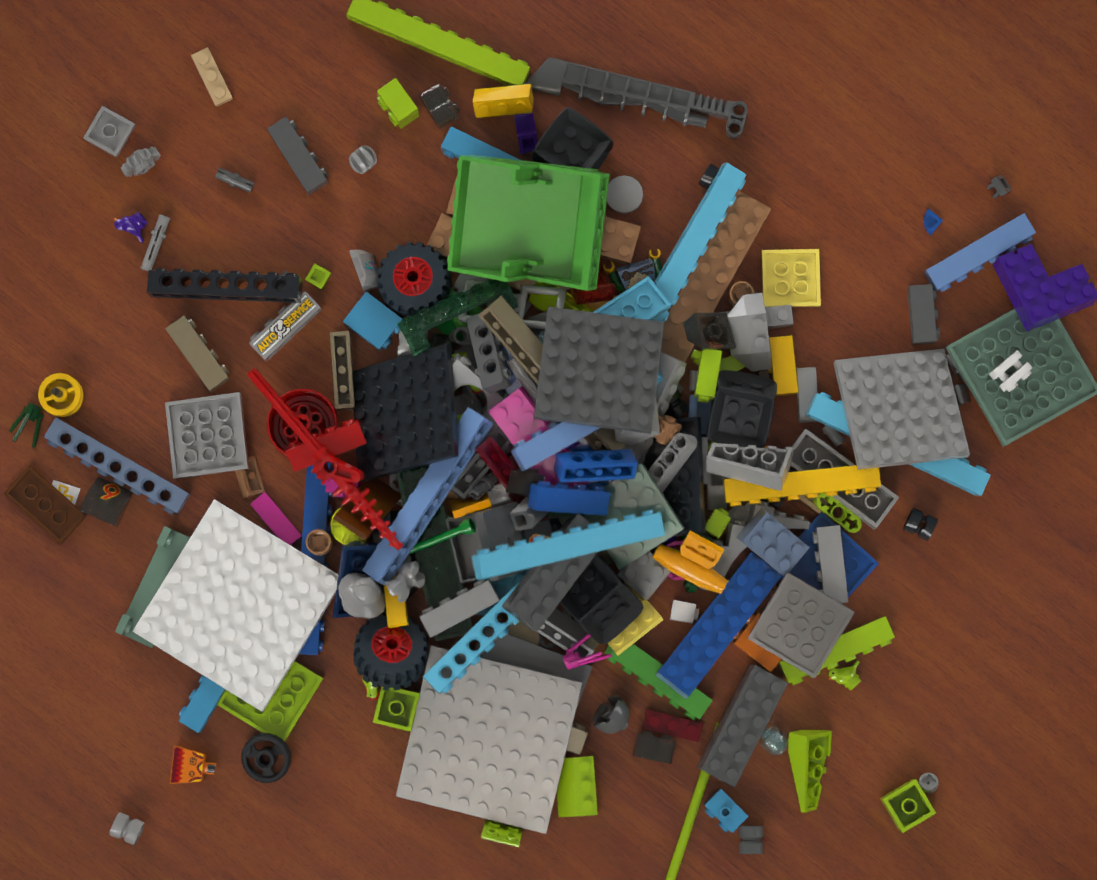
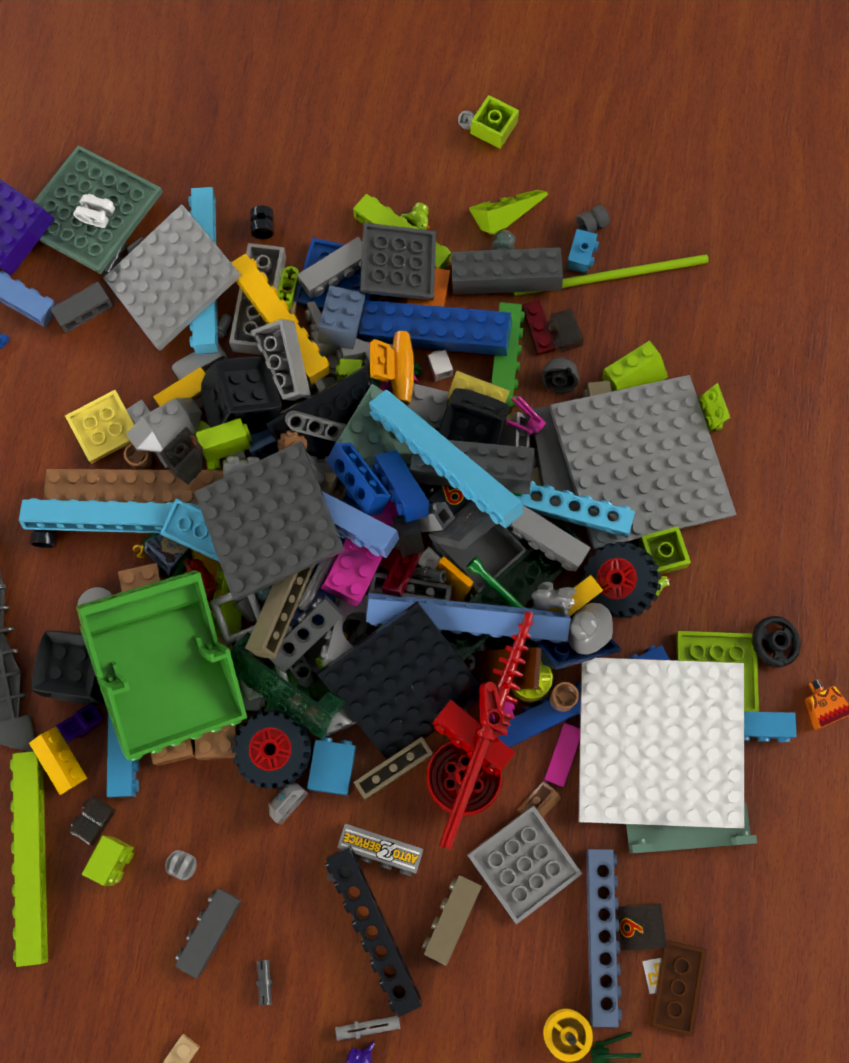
camera: 115 degrees left, 10 degrees down
(318, 276) = (316, 844): lime plate -> none

